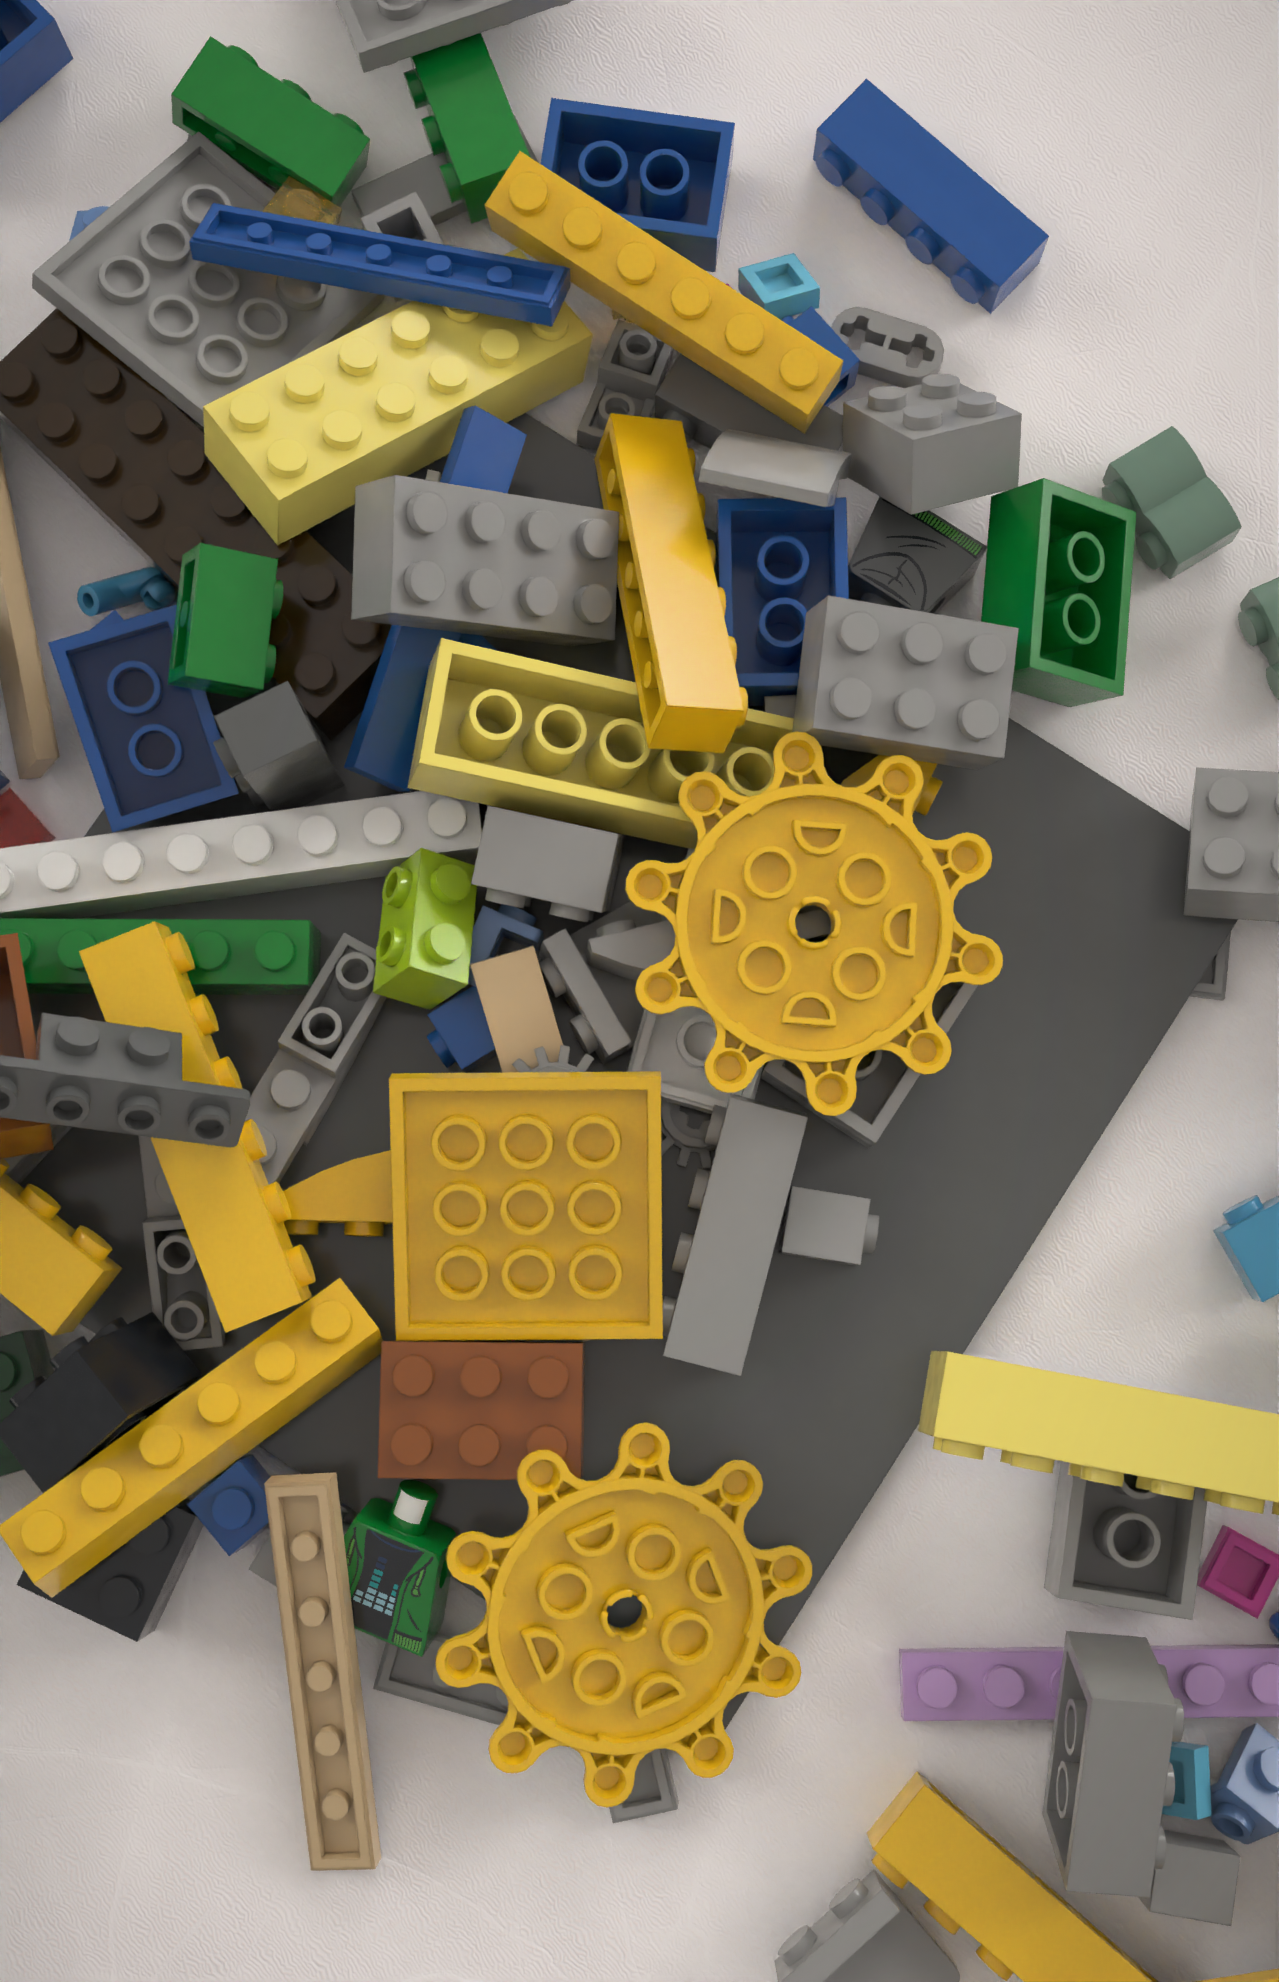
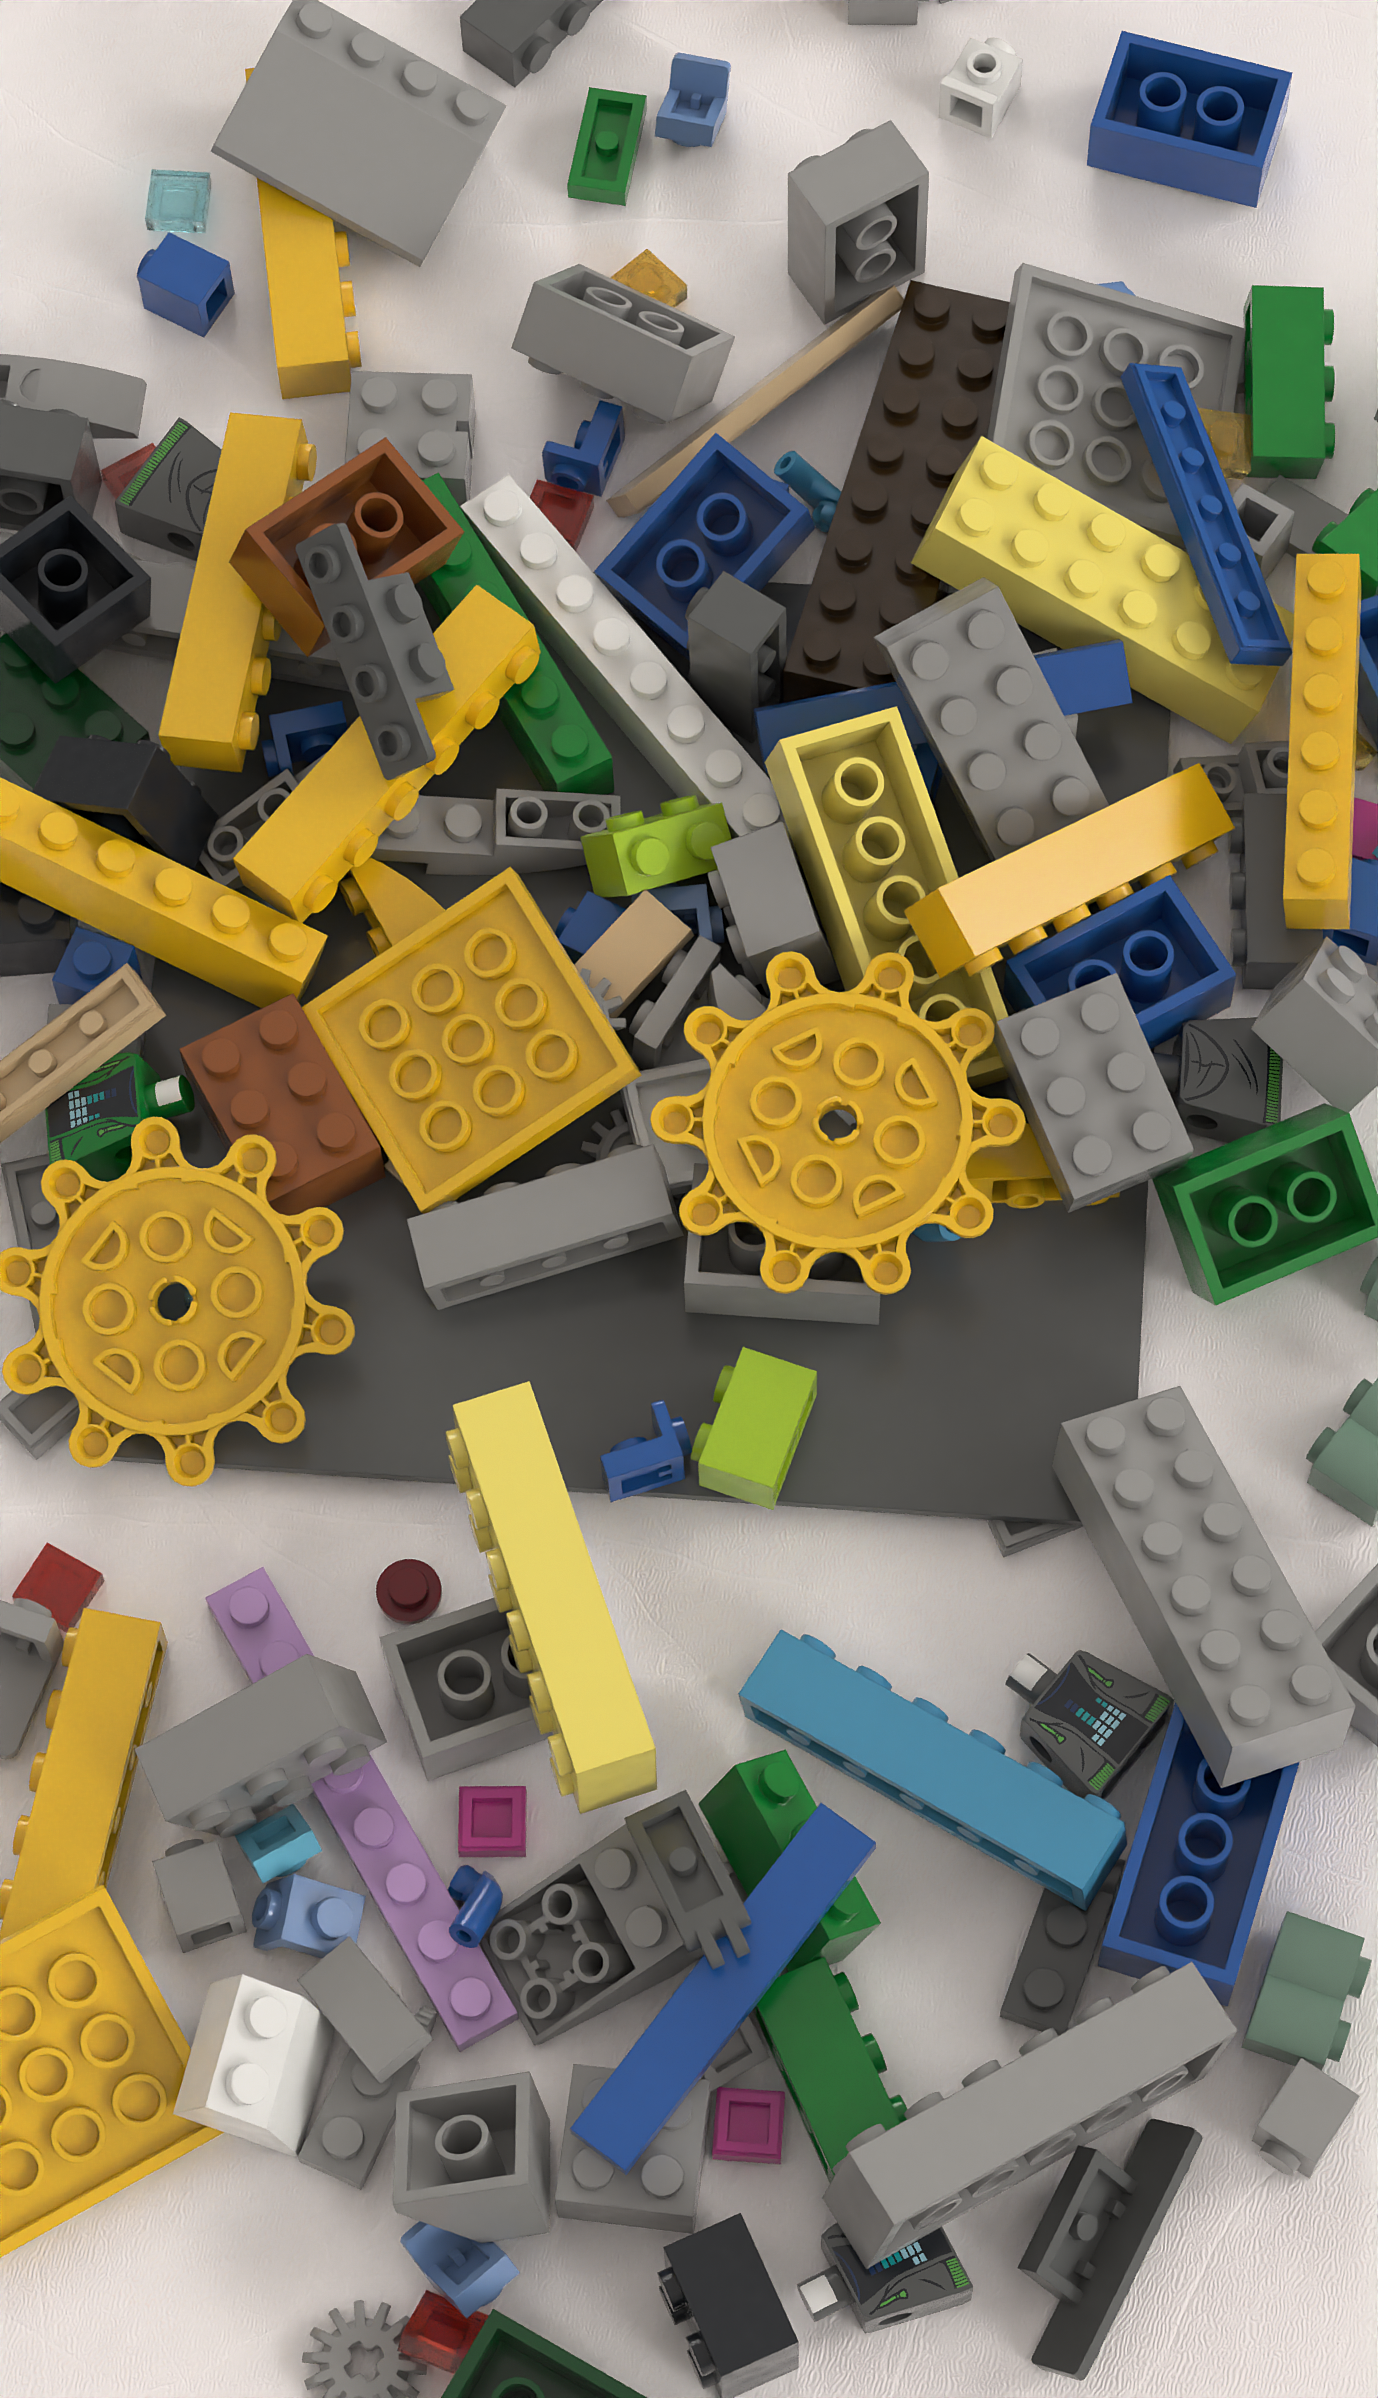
camera: 60 degrees right, 15 degrees down
(112, 1177) = (302, 735): none -> blue bracket
(225, 621) = (814, 549): green brick -> none
(775, 467) = (1225, 903): light grey slope -> none
(816, 1847) = (60, 1585): none -> clear red tile
(828, 1226) = (594, 1304): light grey brick -> none
(992, 1533) = (409, 1591): none -> dark red plate
(1001, 1269) = (645, 1465): none -> blue bracket
(1027, 1152) = (755, 1427): none -> lime brick

